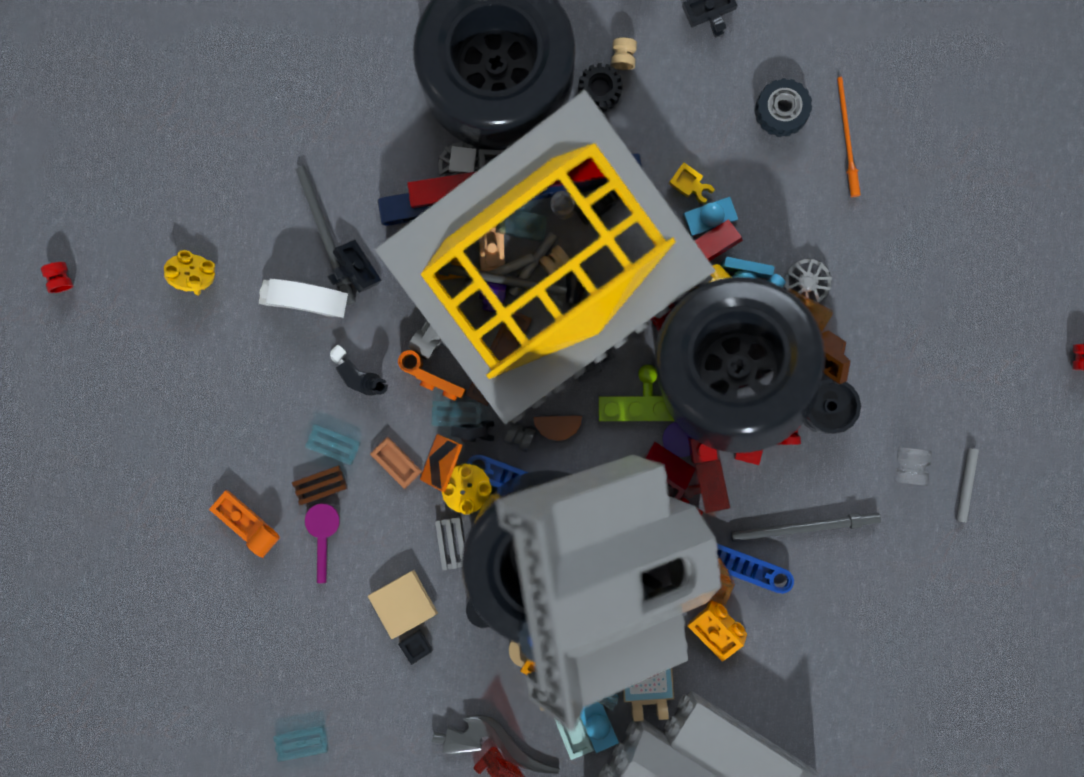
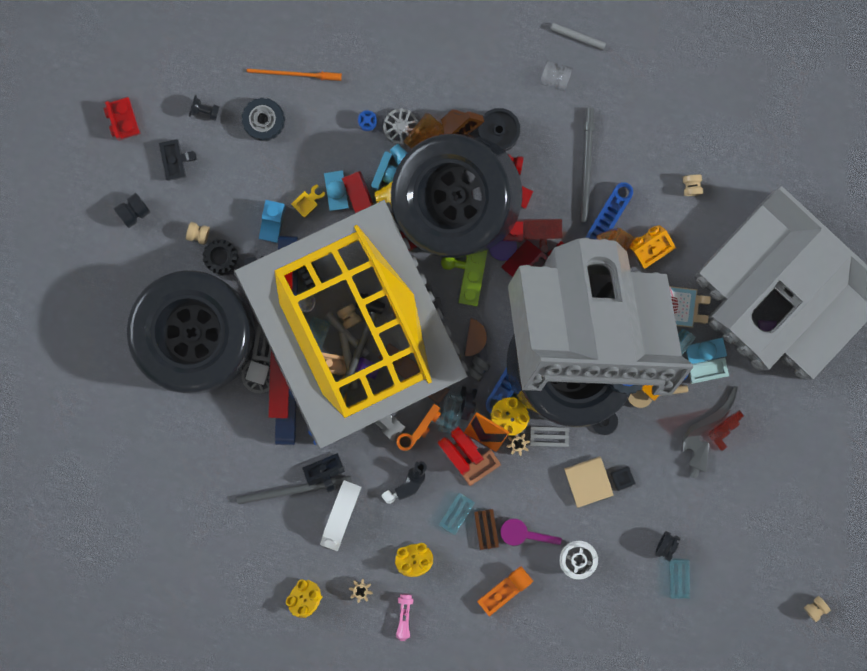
camera: 85 degrees left, 0 degrees up
(174, 404) = (403, 629): none -> bright pink piece
(207, 343) = (361, 585): none -> tan gear
(266, 411) = (422, 558): none -> yellow plate
(298, 611) = (578, 560): none -> white cone
(338, 721) = (667, 546): none -> black wheel
(414, 436) = (460, 450): none -> red wheel
(427, 508) = (513, 445): none -> tan gear
(658, 142) = (272, 221): none -> dark azure arch
(781, 21) = (197, 107): none -> black piece
(807, 668) = (692, 180): none -> tan wheel
(811, 234) = (365, 118): none -> blue wheel

